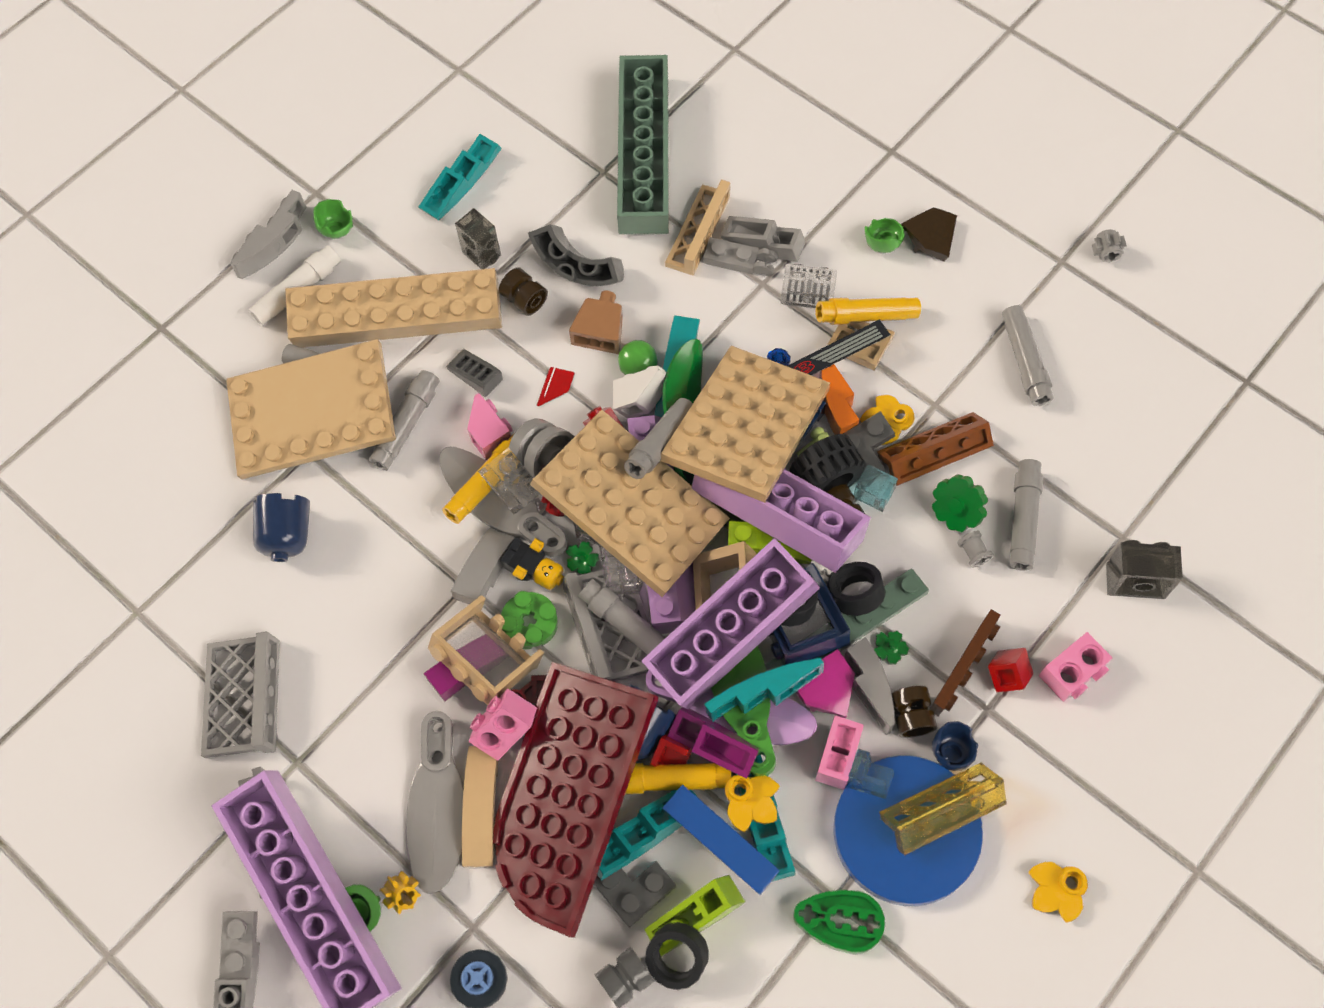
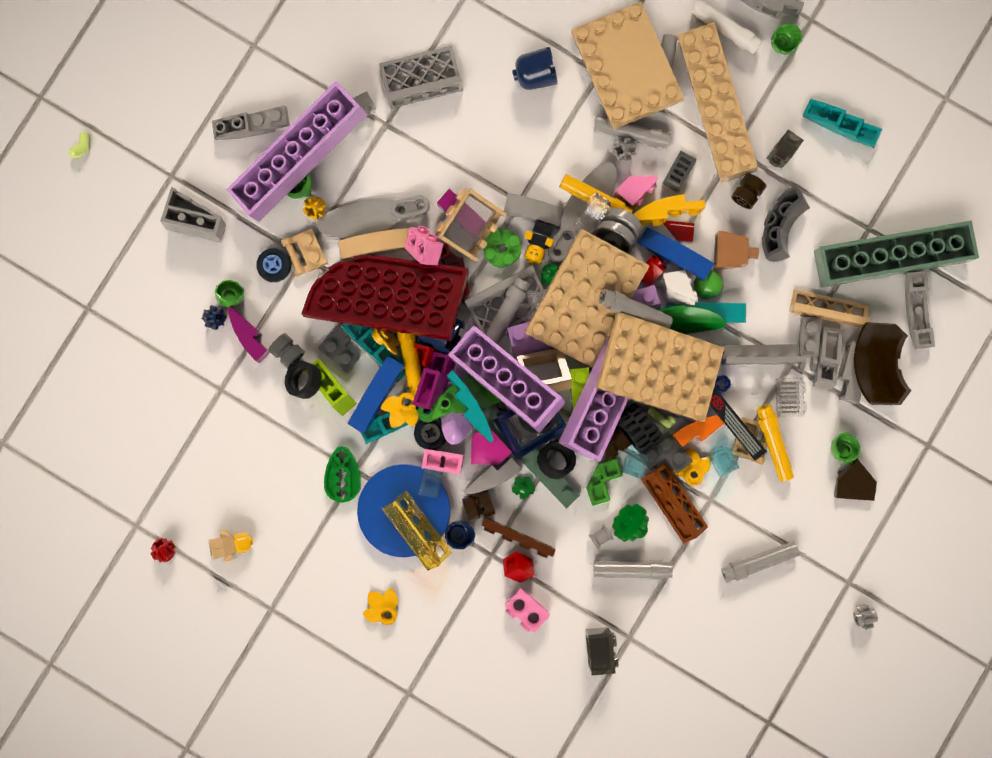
camera: 80 degrees right, 20 degrees up
(426, 439) = (624, 149): none -> light grey gear
(467, 914) = (310, 250): none -> tan plate
(523, 385) = (658, 211): none -> yellow slope
(590, 387) = (675, 253): none -> blue slope
(631, 809) = (387, 338): none -> yellow plate
(718, 135) = (917, 310): none -> light grey slope
(746, 307) = (761, 354): none -> light grey fence
(781, 179) = (877, 363): none -> dark brown panel
(787, 776) = (436, 437): none -> black wheel
(790, 213) = (850, 391): none -> light grey slope
(884, 377) = (723, 460): none -> clear light blue brick
(899, 545) = (604, 472): none -> bright green tile

